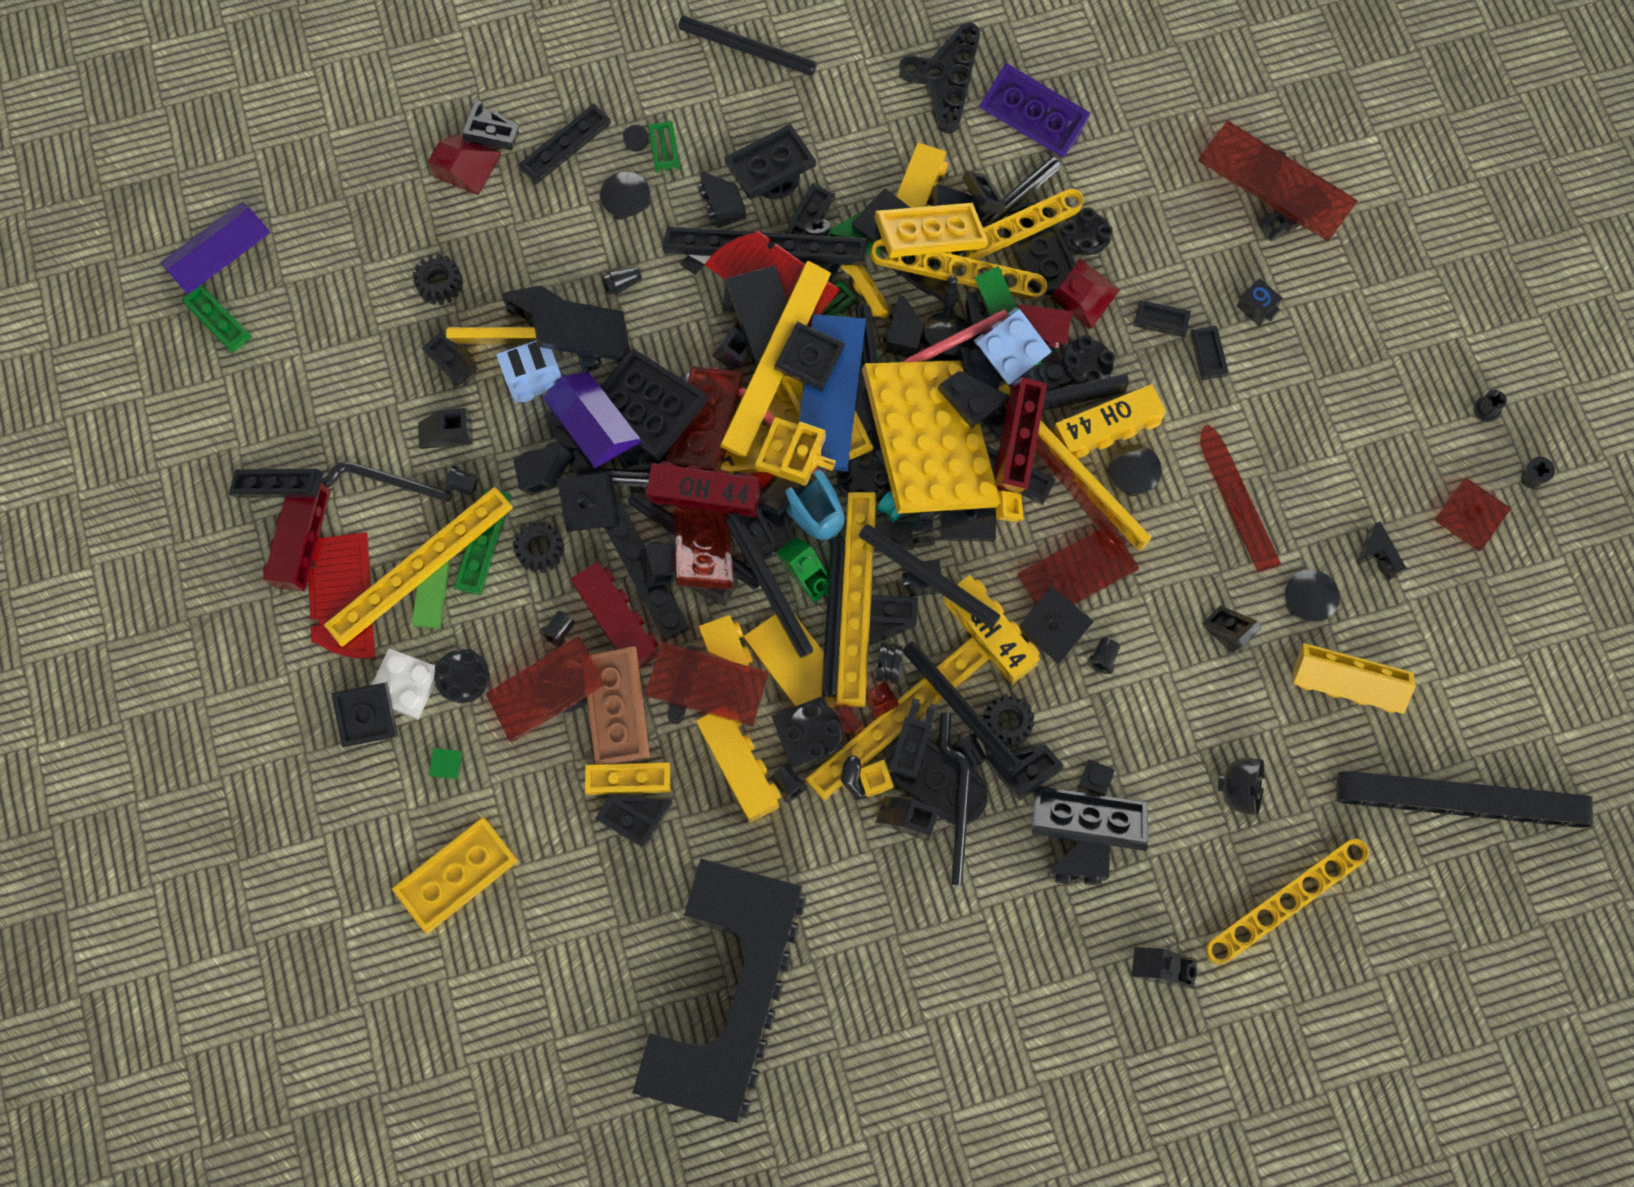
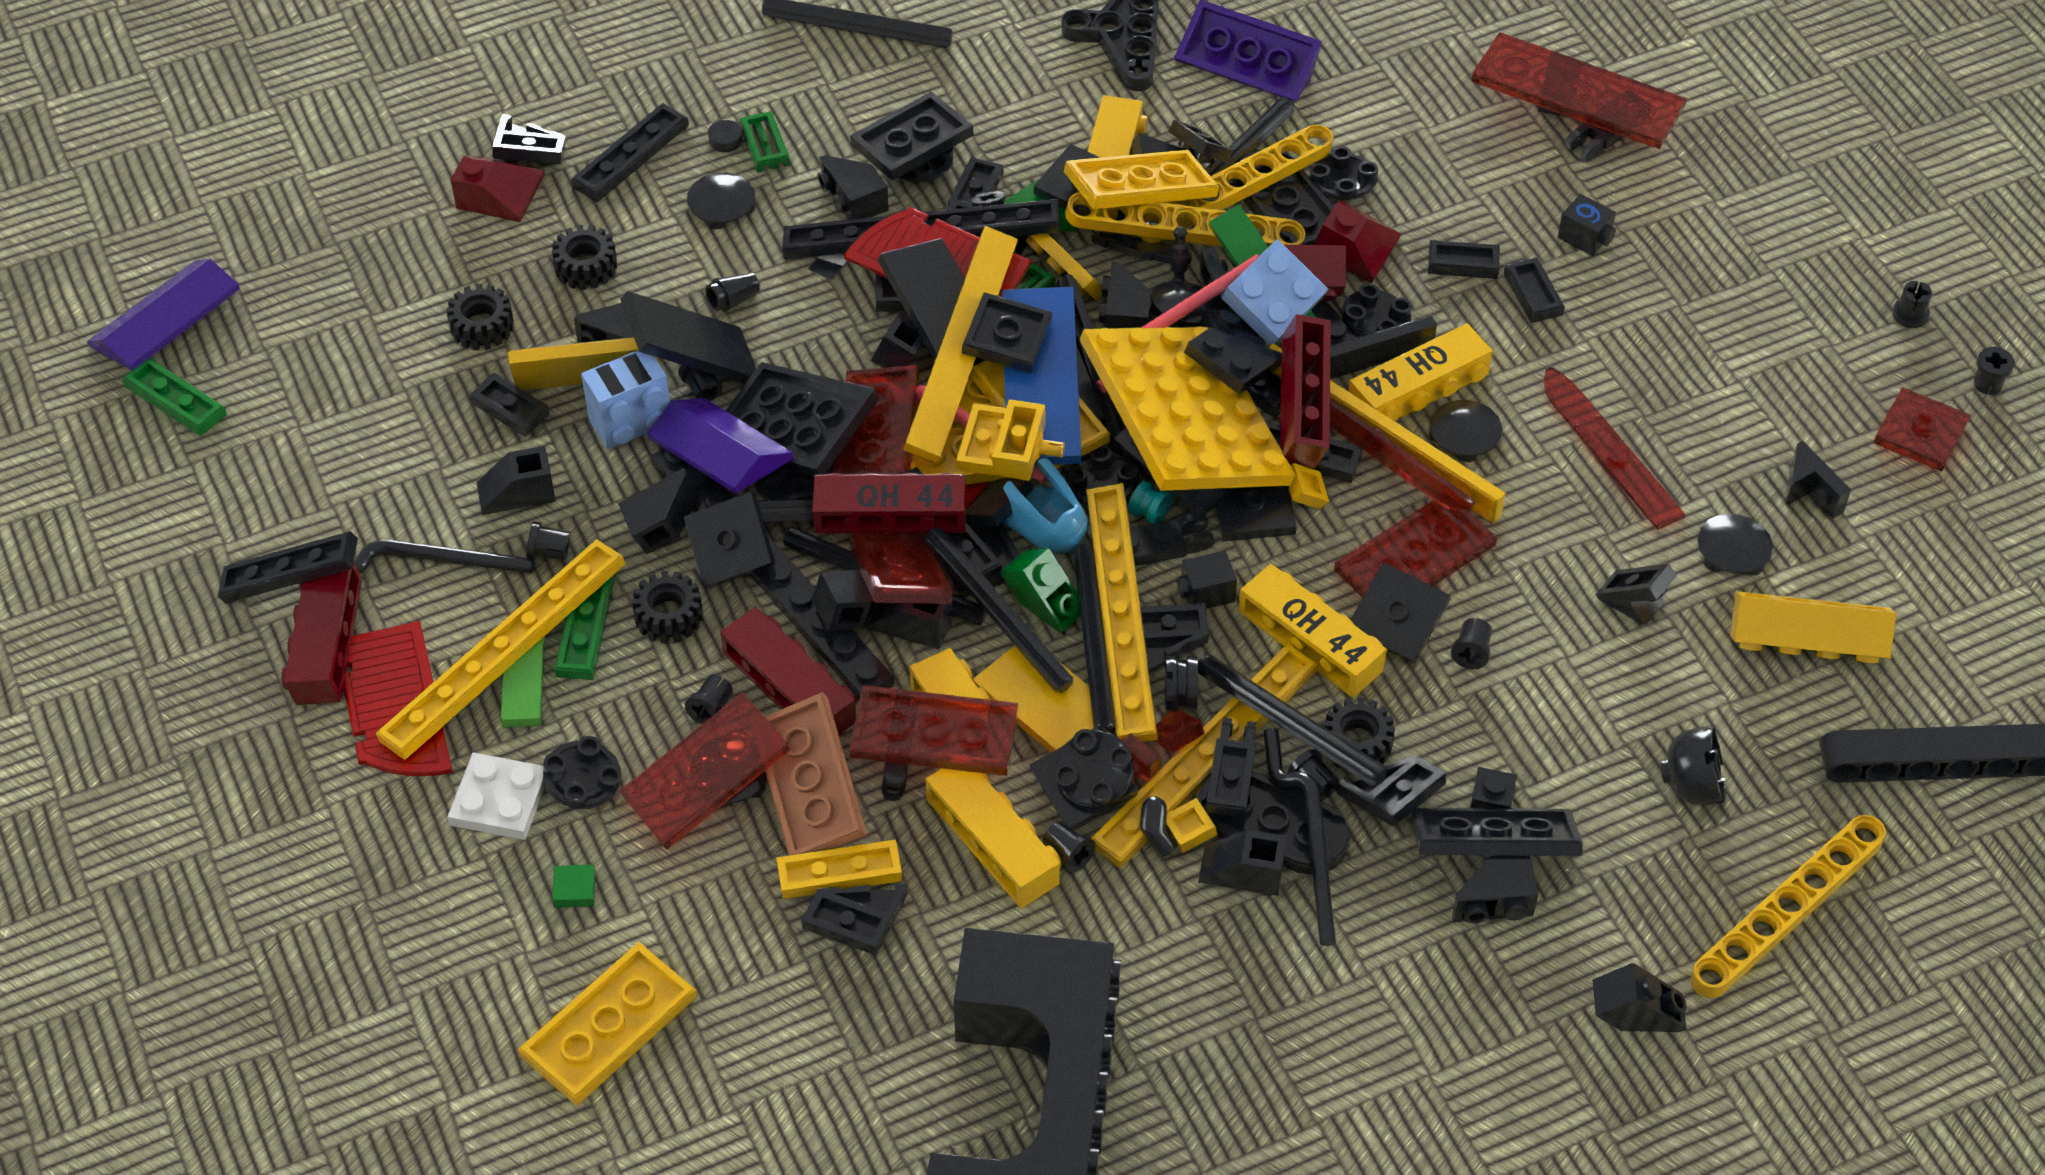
camera: 10 degrees left, 20 degrees down
(364, 714) = (450, 834): black plate -> none
(515, 223) = (580, 243): none -> black tyre
(929, 575) = (1217, 566): black axle -> none

